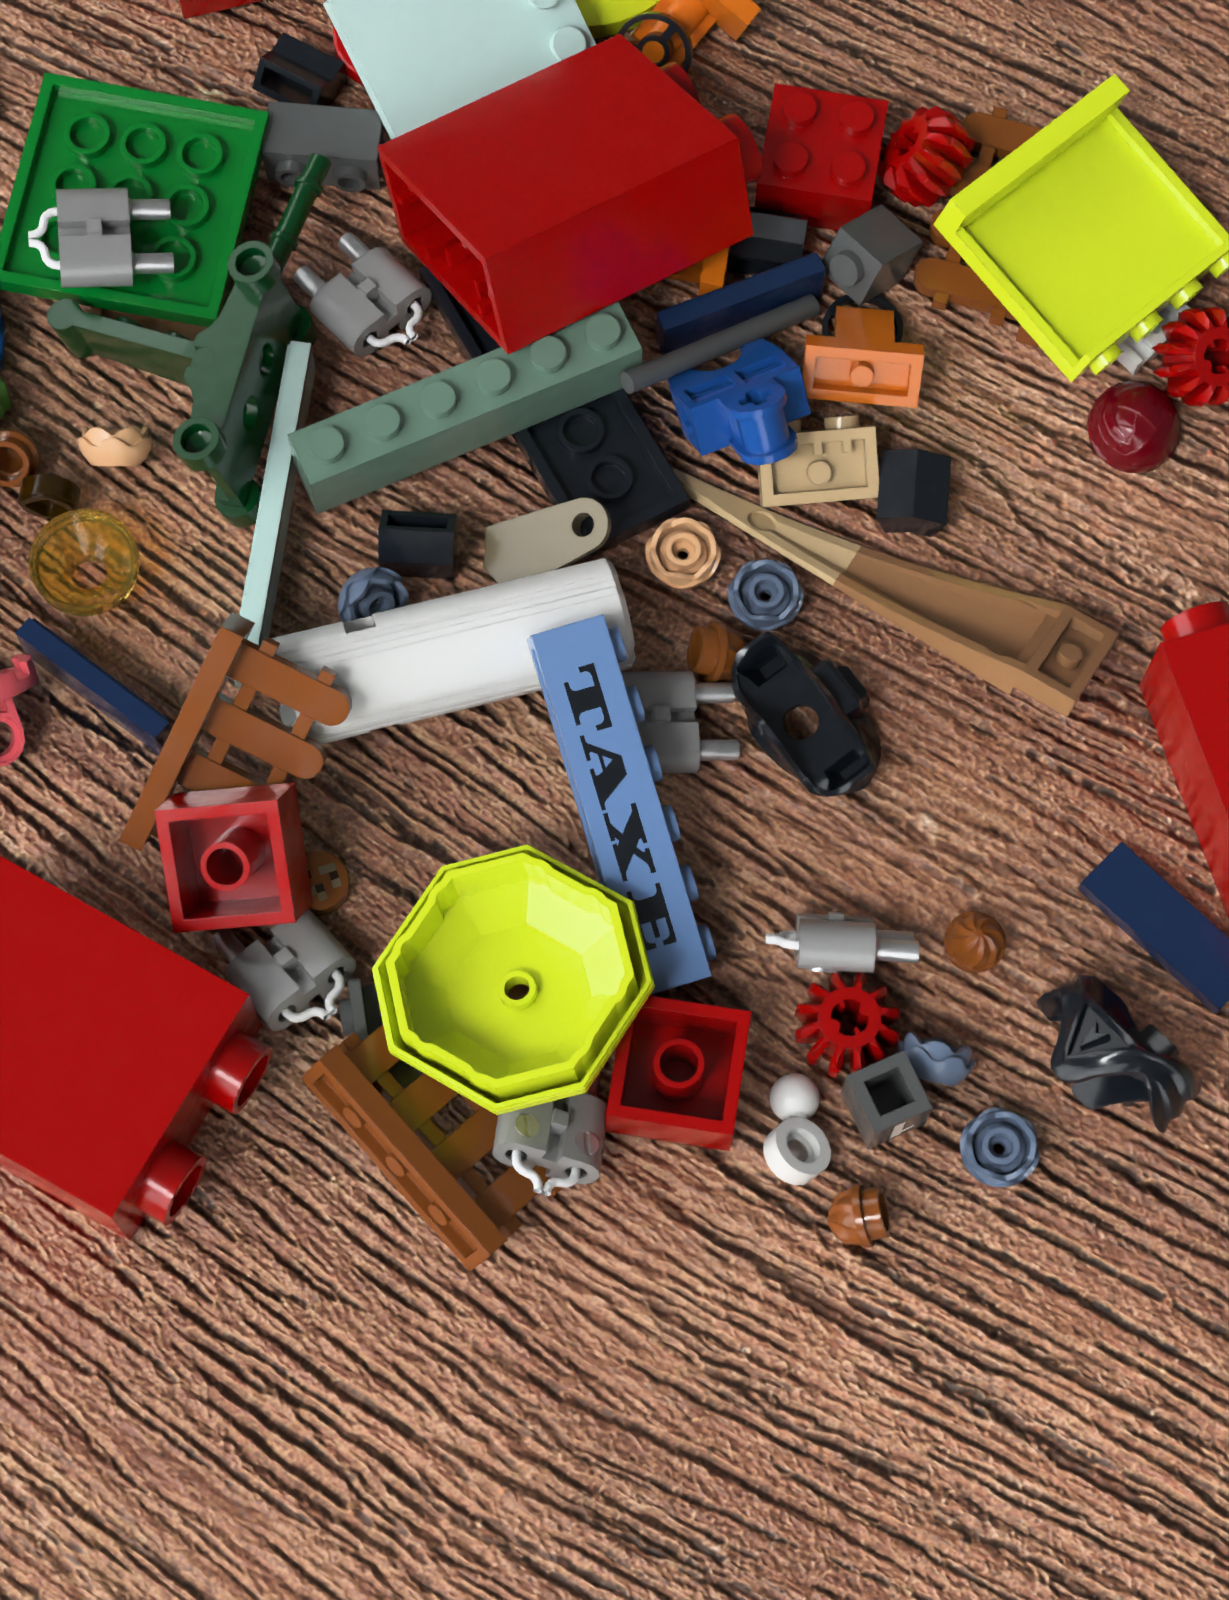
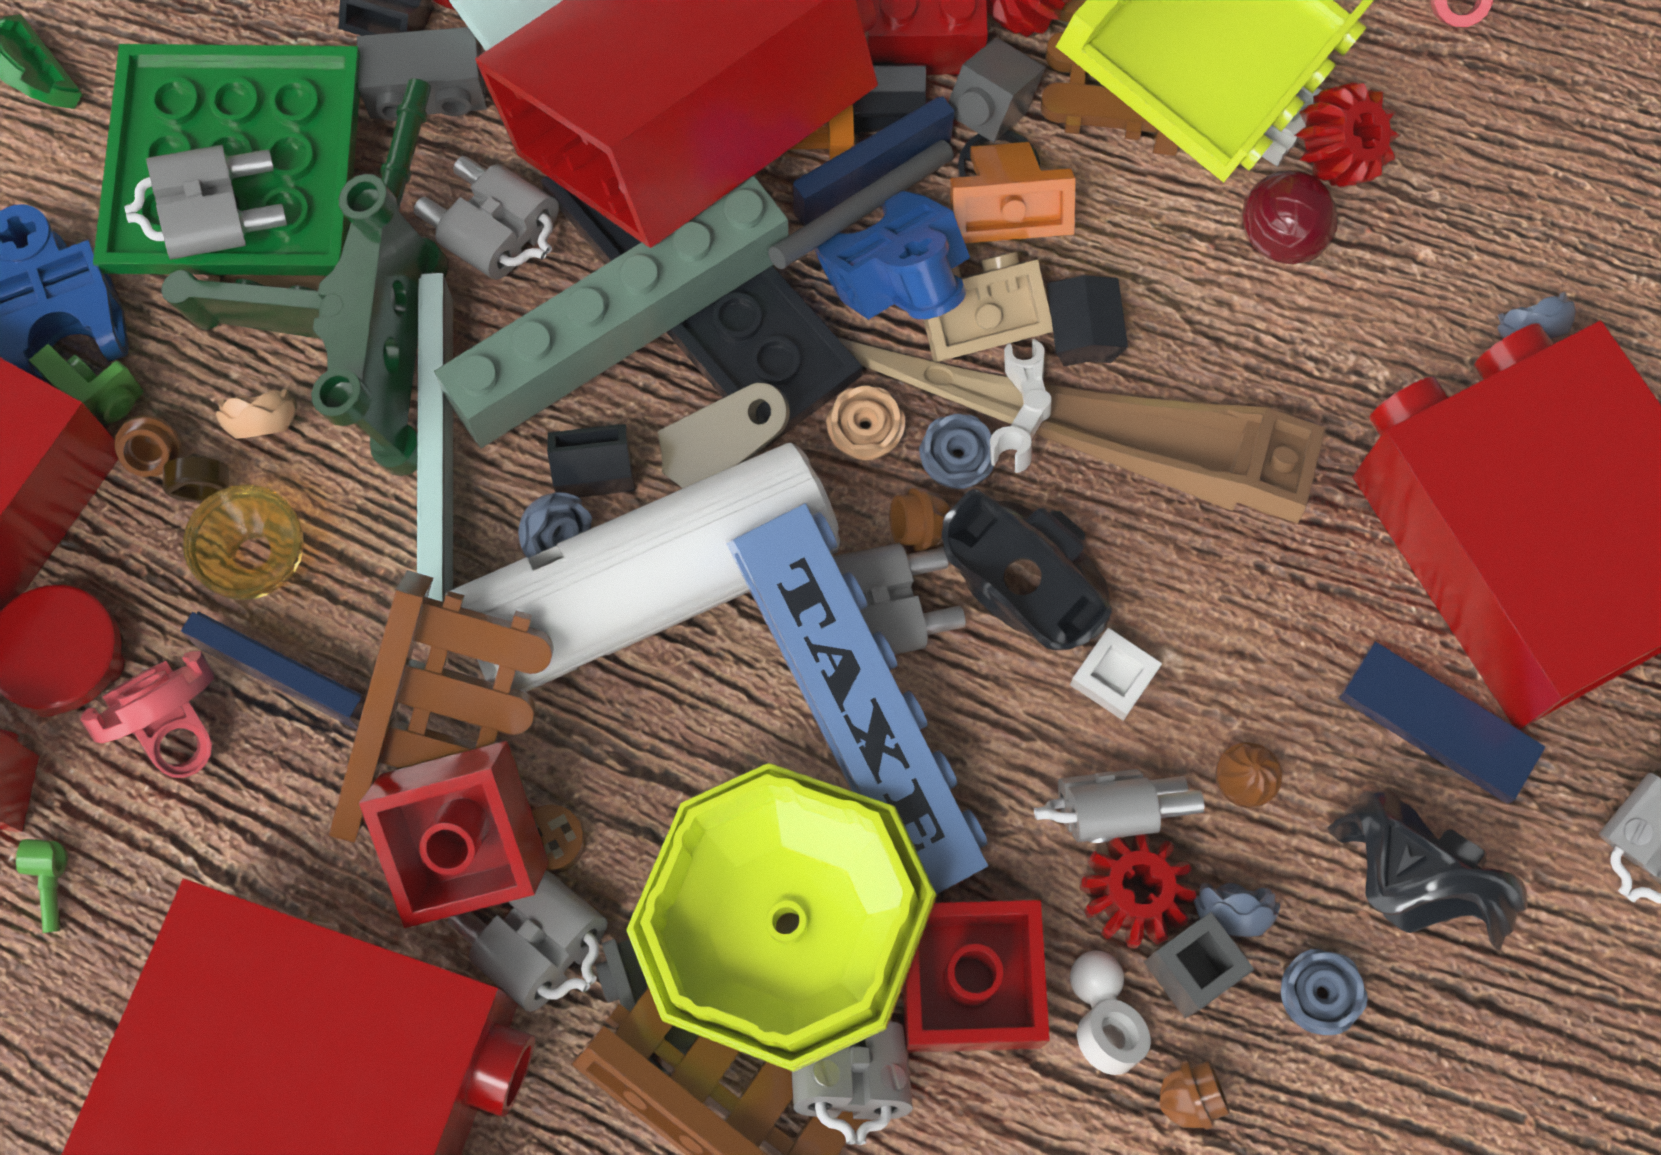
camera: 10 degrees left, 0 degrees up
(847, 564) = (1028, 379): none -> white piece
(869, 827) = (1115, 674): none -> white plate

